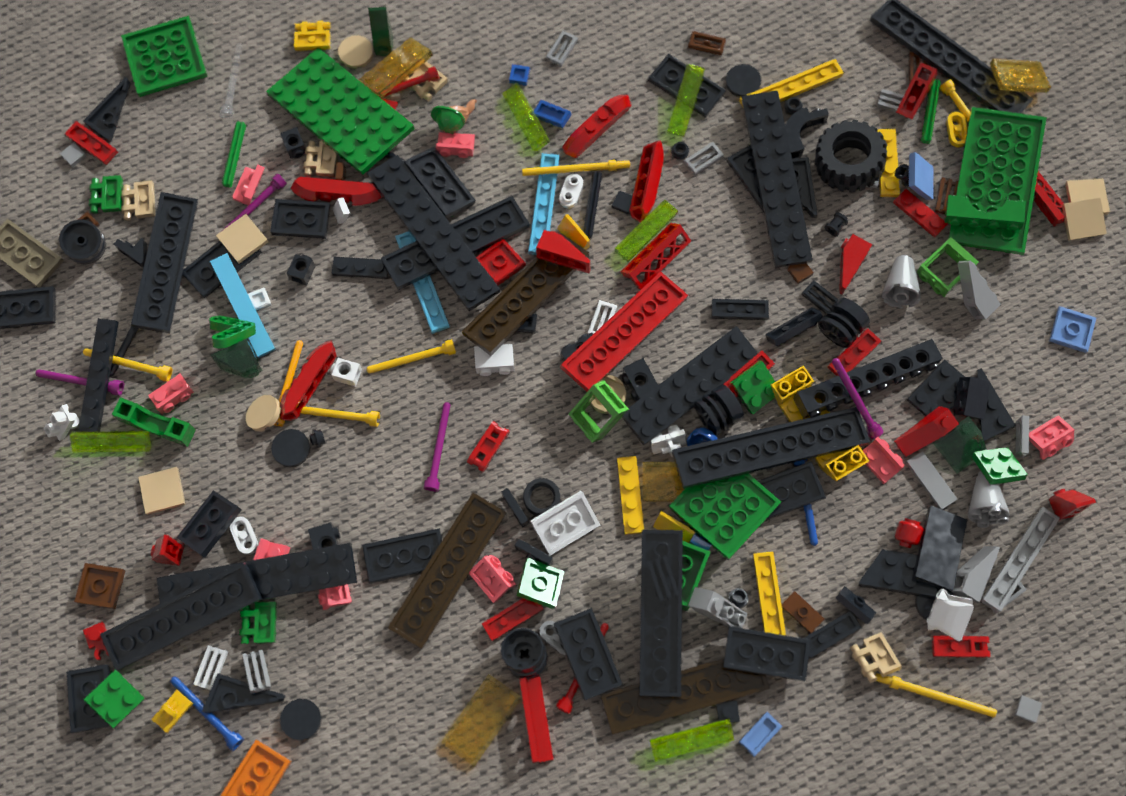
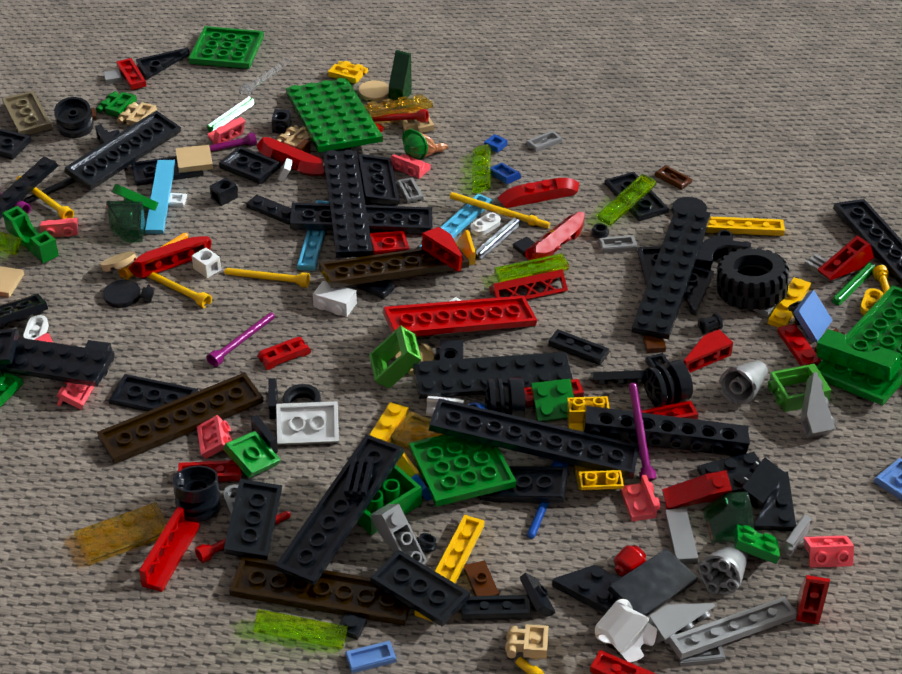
camera: 25 degrees right, 30 degrees down
(485, 188) = (419, 196): none -> light grey tile

